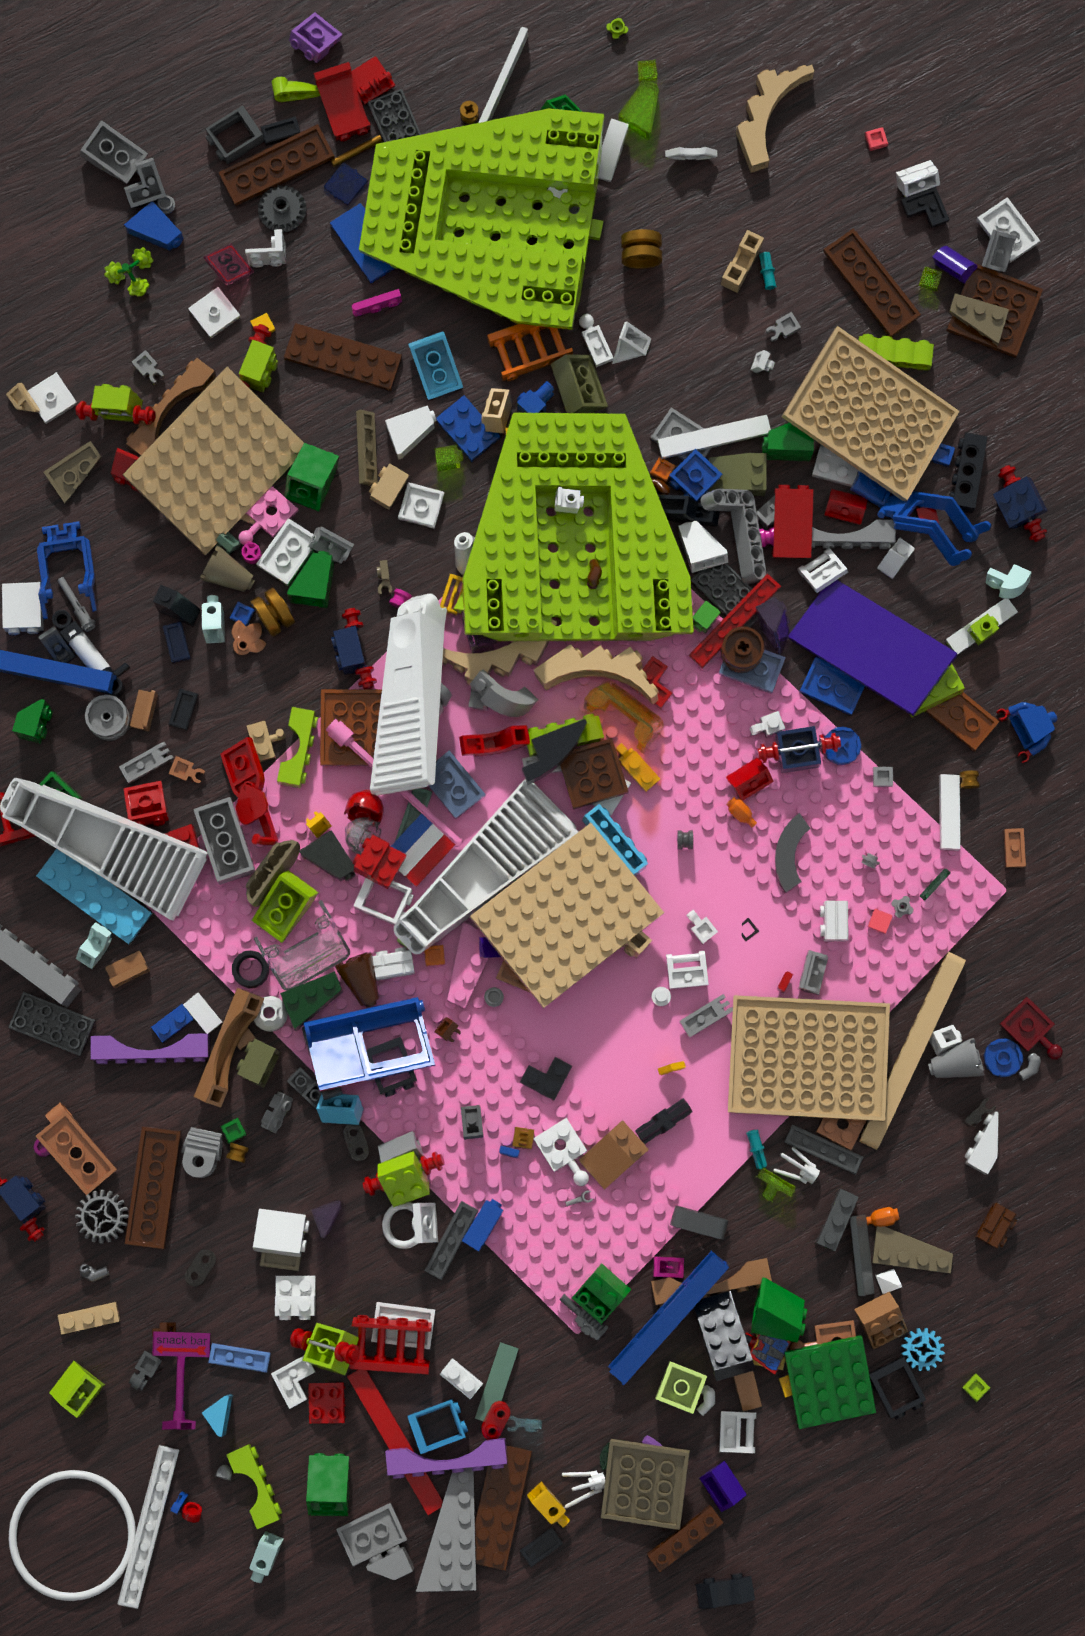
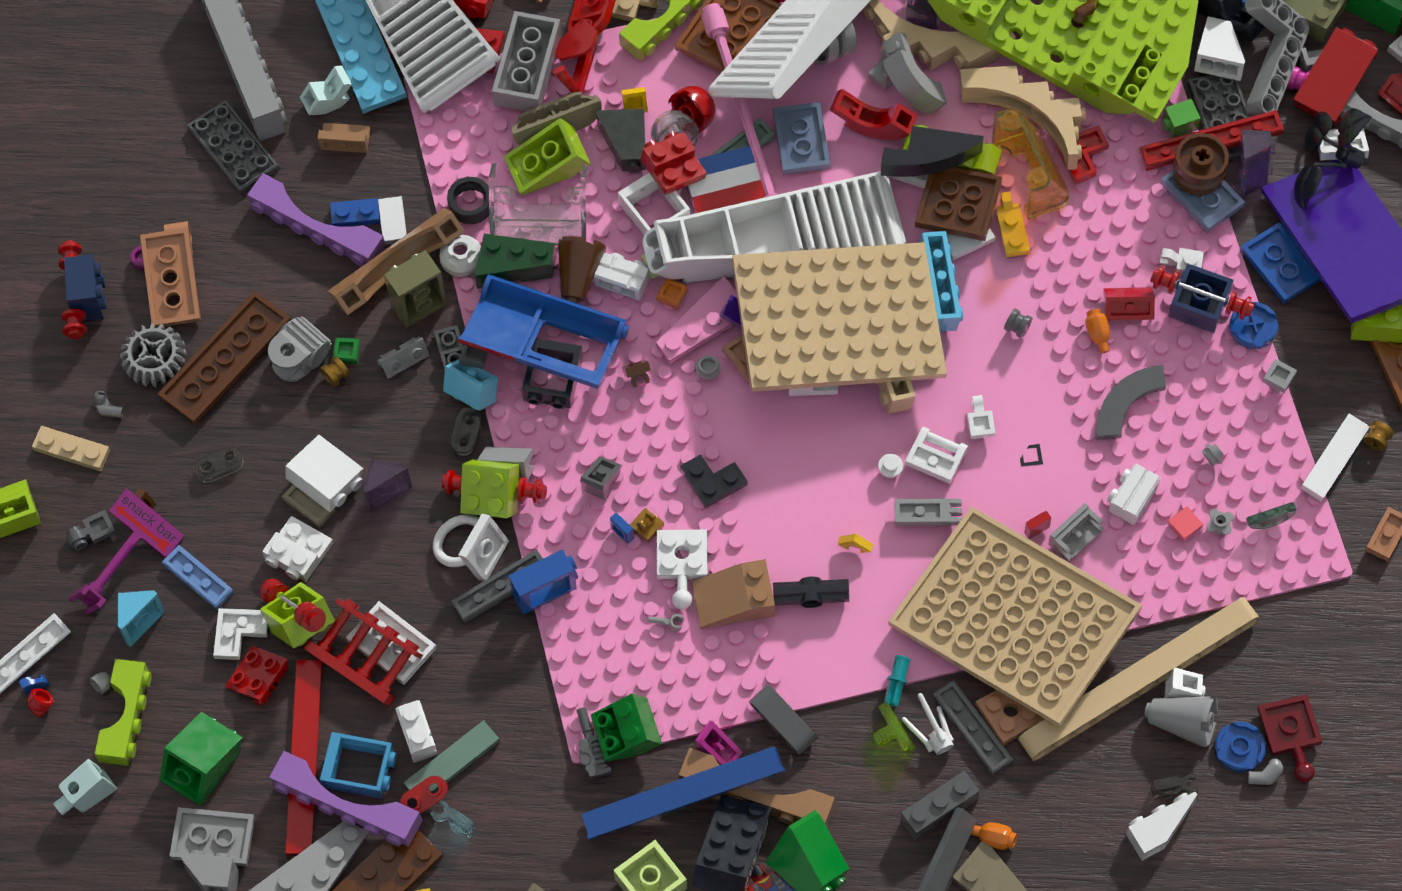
camera: 35 degrees right, 15 degrees down
(837, 578) = (1349, 128): none -> black plant

